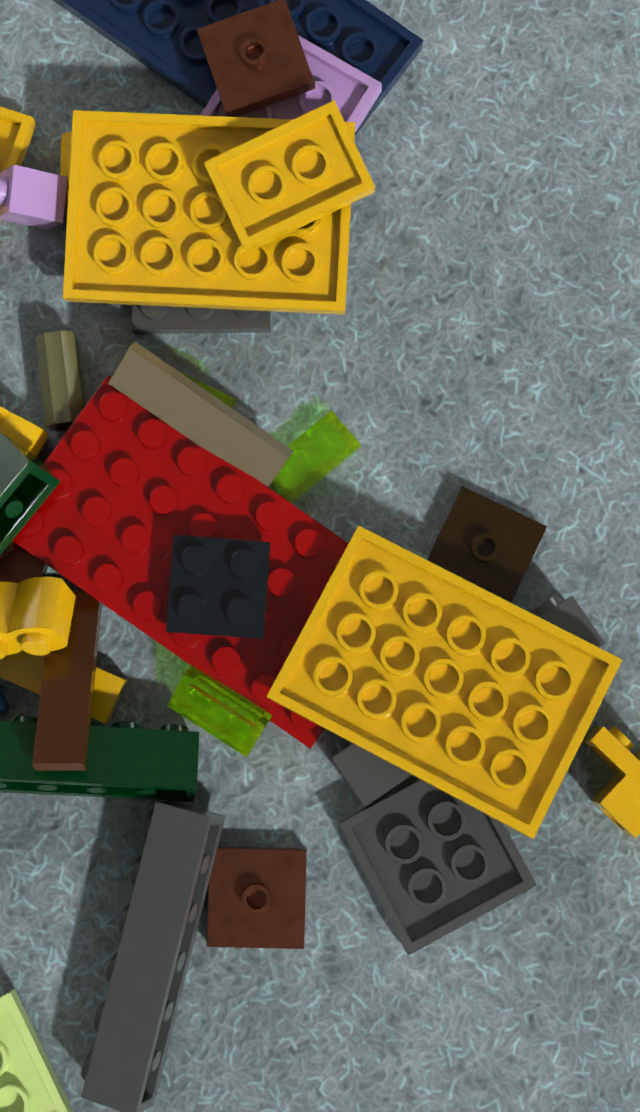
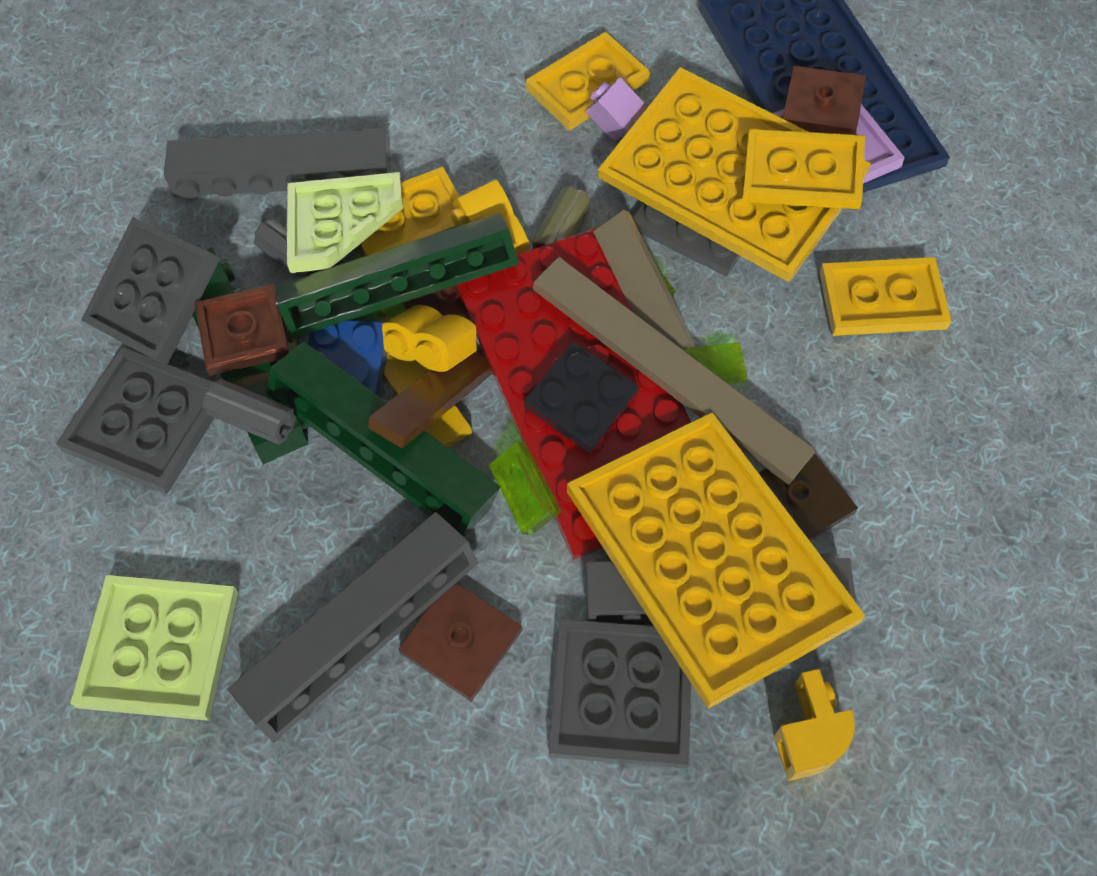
camera: 30 degrees right, 20 degrees down
(283, 496) = (673, 369): none -> dark tan tile
(445, 262) = (884, 296): none -> yellow plate

